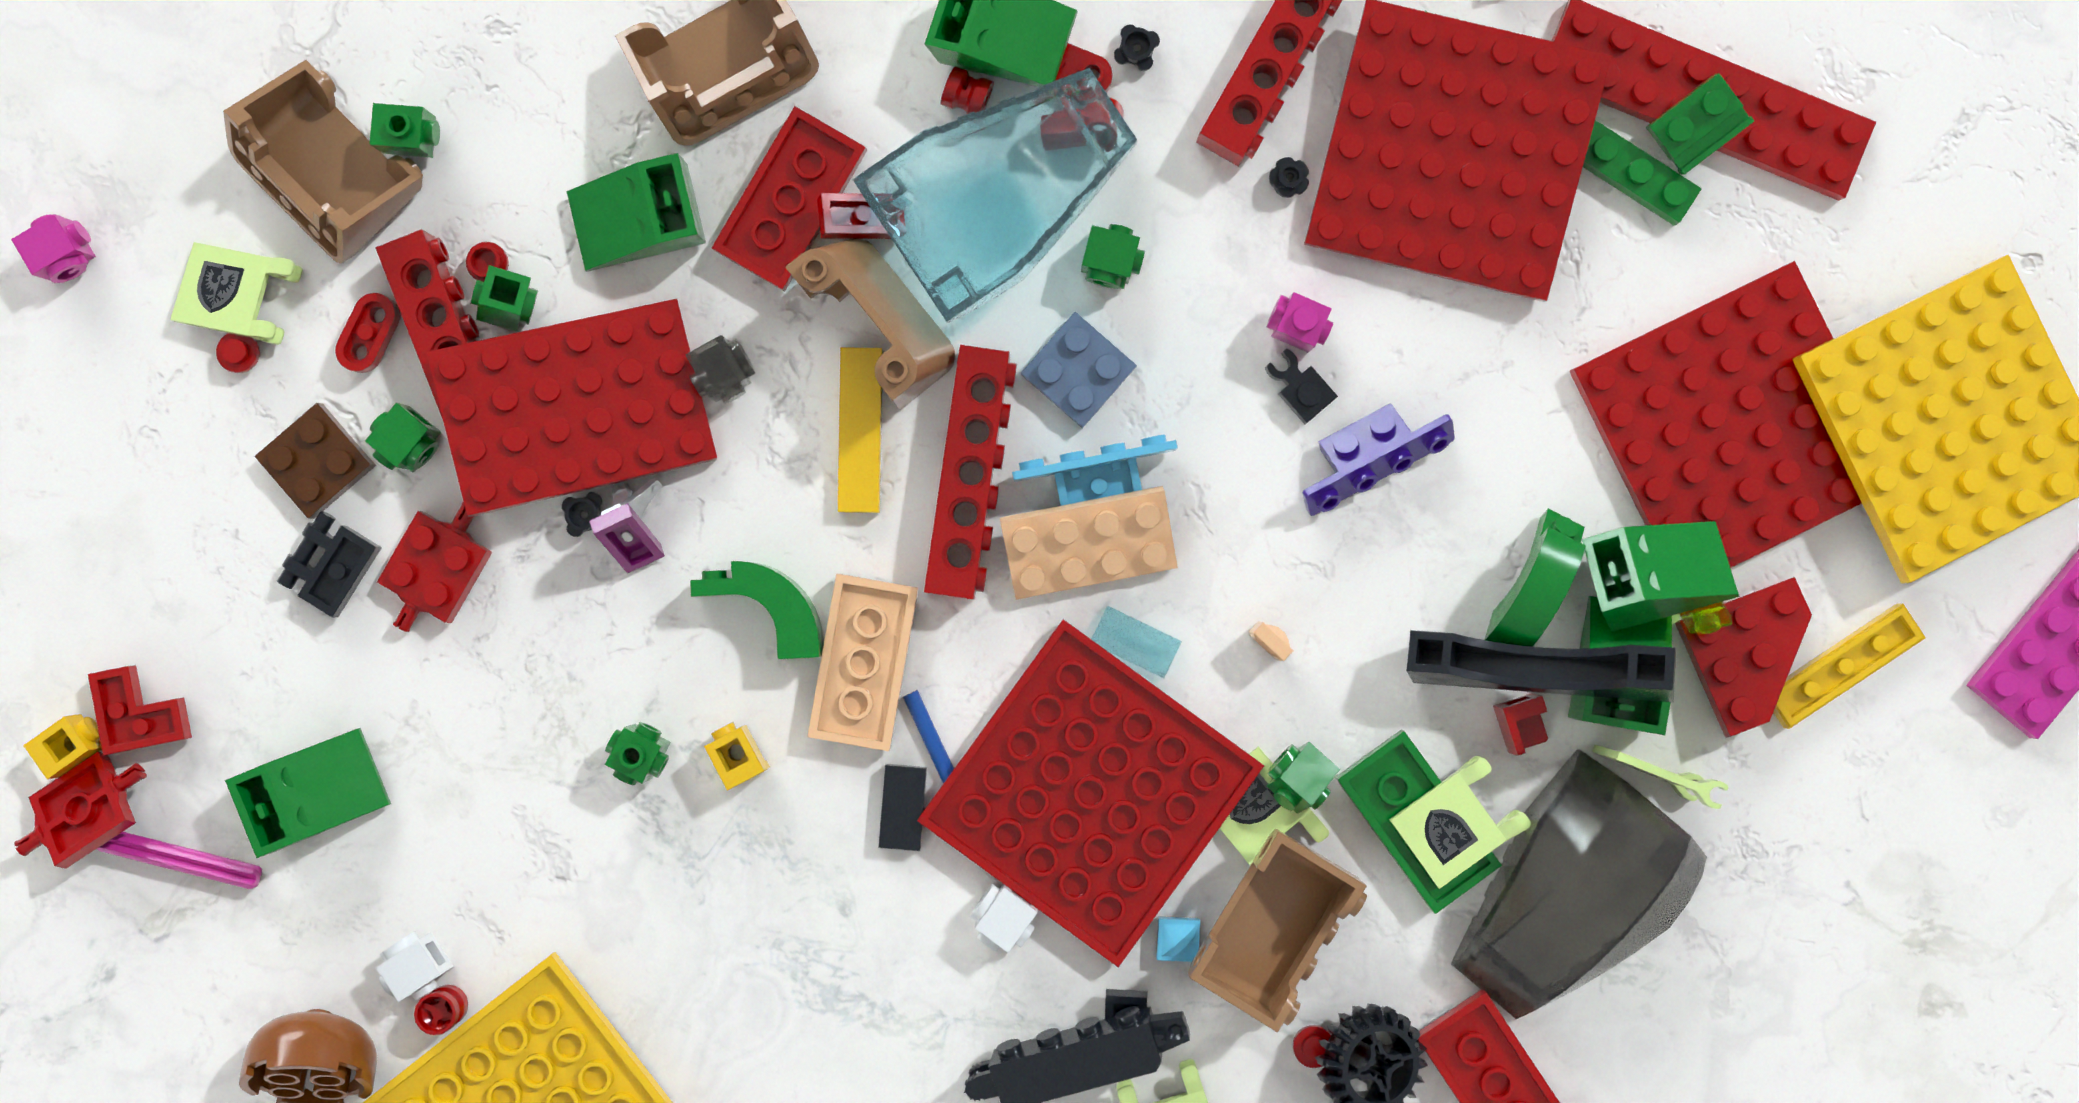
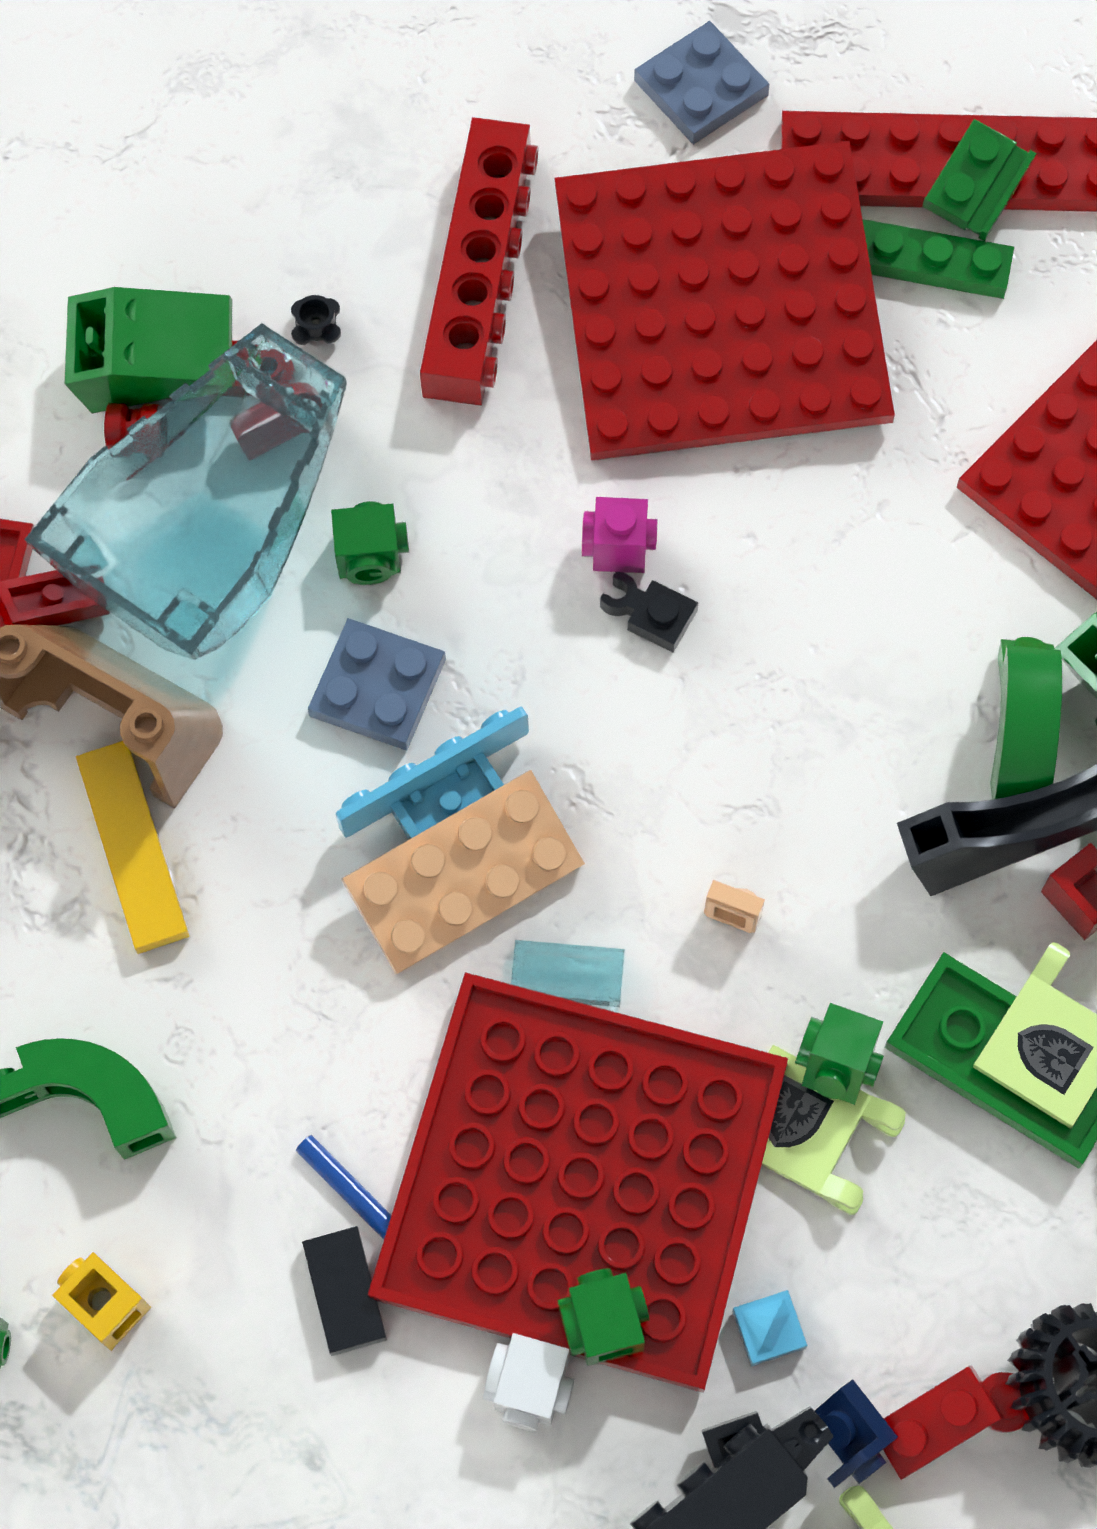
camera: 20 degrees left, 20 degrees down
(863, 662) = (229, 1122): light nougat plate -> none
(973, 366) = (297, 977): red brick -> none
(1068, 901) = (604, 1317): none -> green brick
(1207, 1033) = (857, 1432): none -> dark blue bracket
(1261, 1047) = (940, 1421): none -> red plate
(1275, 929) = (888, 1246): medium nougat windscreen -> none
(1289, 188) = (544, 405): black plate -> none
(1372, 451) = (766, 651): bracket -> none

